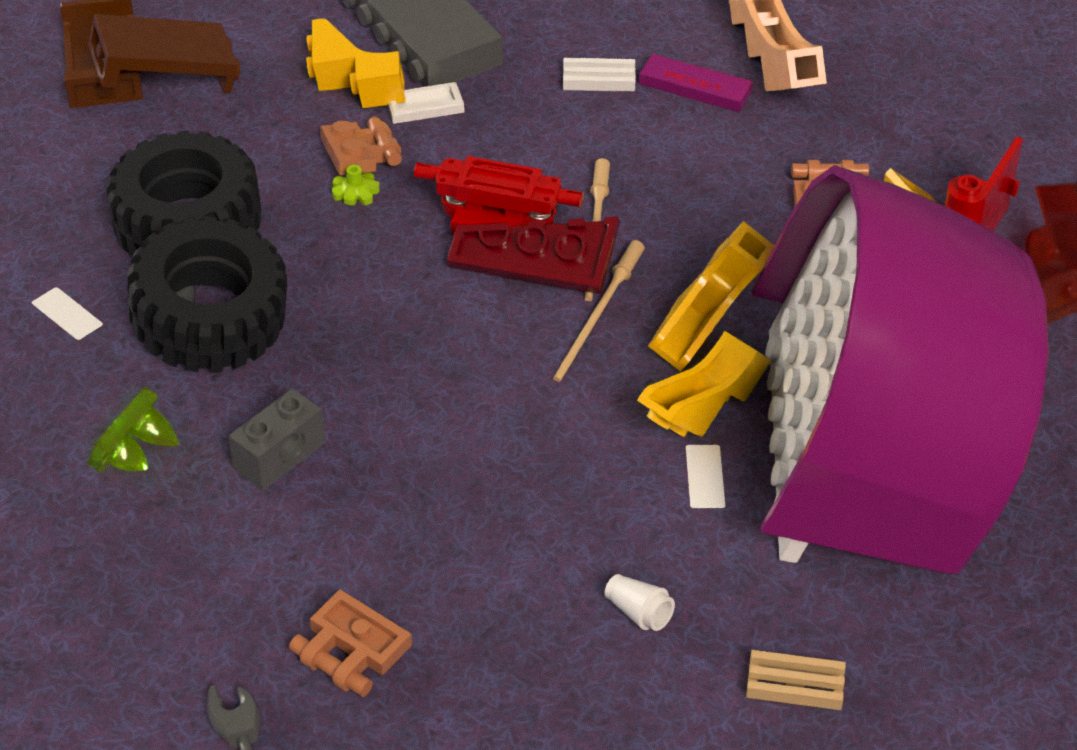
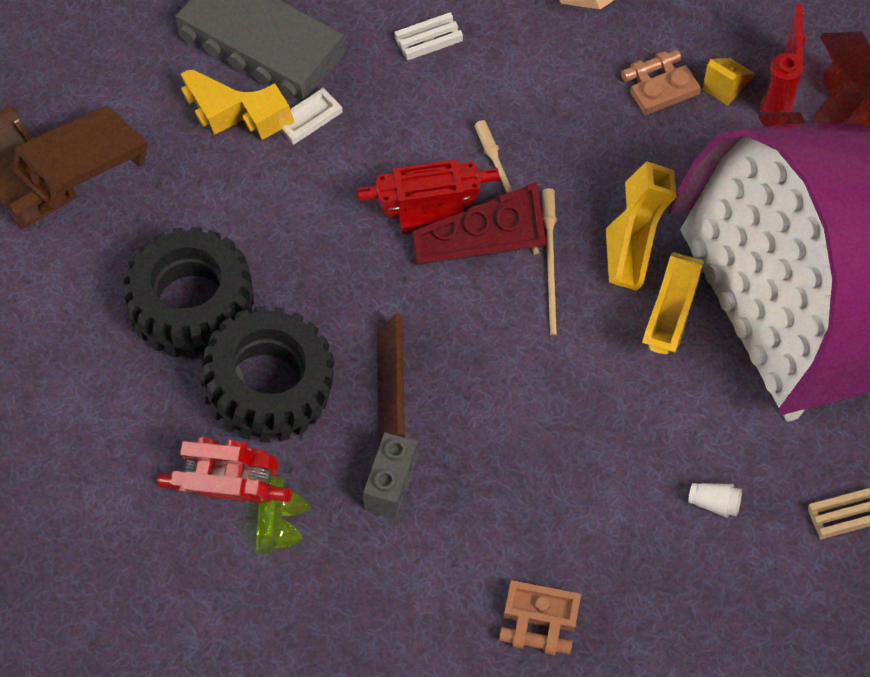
camera: 25 degrees left, 15 degrees up
(67, 313) = (149, 426): white sticker -> none
(99, 363) = (228, 464): none -> piece
(352, 354) = (390, 378): none -> reddish brown slope
(355, 186) = (302, 219): lime plant -> none
(361, 147) = (279, 186): nougat plate -> none
(696, 82) = (506, 16): magenta tile -> none
(705, 476) = (700, 373): white sticker -> none

